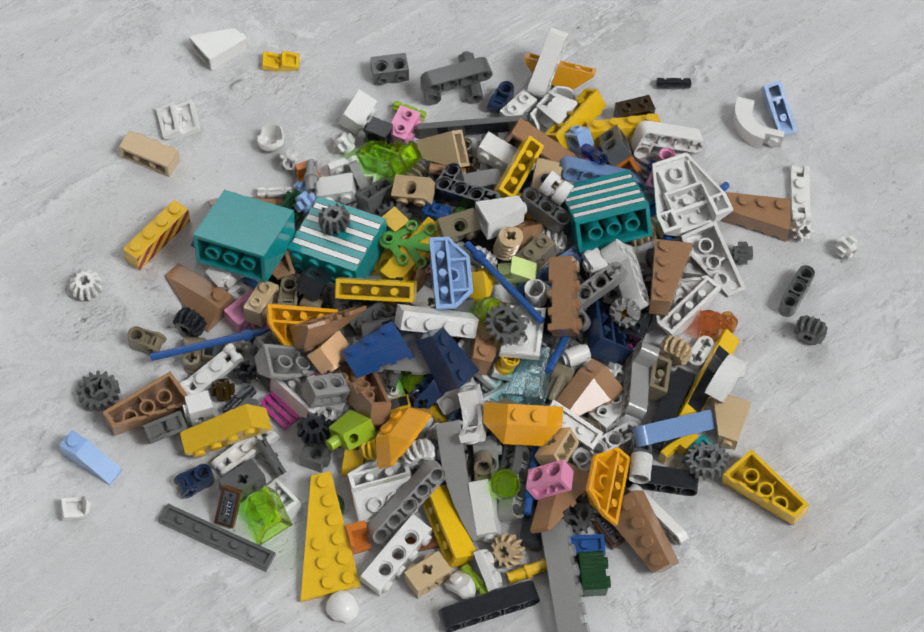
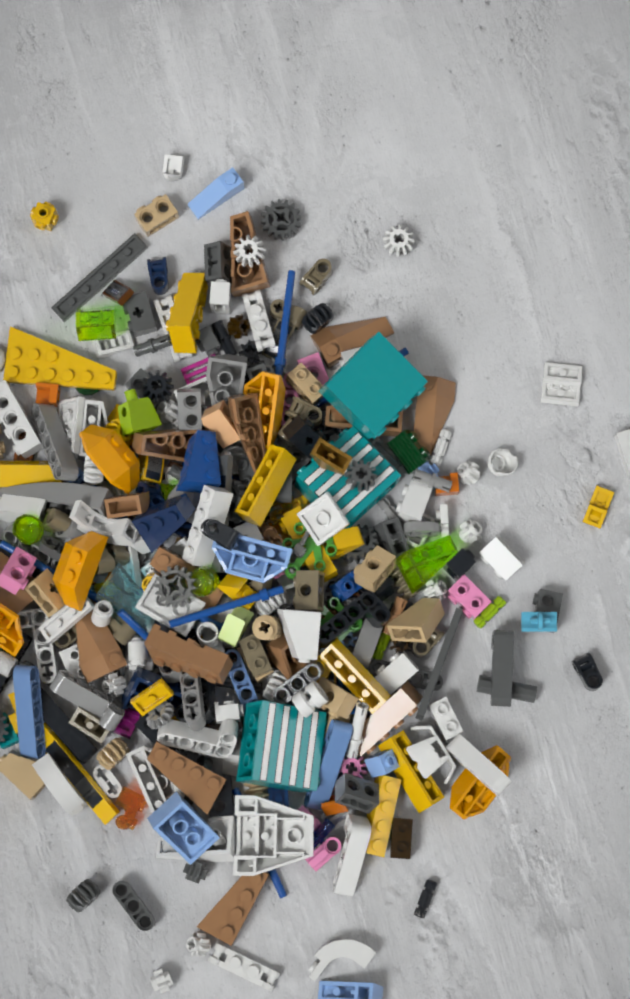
camera: 115 degrees right, 20 degrees up
(135, 501) = (160, 219): none -> tan brick
(149, 153) = (528, 343): tan brick -> none
(153, 391) = (244, 246): none -> white gear
(156, 234) = (429, 320): yellow brick -> none
(170, 609) = (47, 221): none -> yellow brick
(304, 202) = (403, 463): light blue gear -> none
(328, 241) = (330, 457): none -> pearl gold slope
(387, 237) = (323, 519): none -> white plate
(405, 60) = (538, 621): none -> medium azure hips
(423, 249) = (299, 550): none -> light grey hand
(429, 24) = (587, 670): none -> black piece
(441, 297) = (222, 535): none -> black piece
(443, 401) = (127, 505): none -> medium nougat brick
(499, 98) = (466, 709): dark blue piece -> none
(554, 155) = (358, 725): none -> white pin
(555, 390) = (102, 613): none -> white brick
(594, 154) = (351, 765): clear blue pin -> none
(612, 323) = (152, 697): none -> yellow plate
(712, 263) = (183, 828): none -> light blue slope

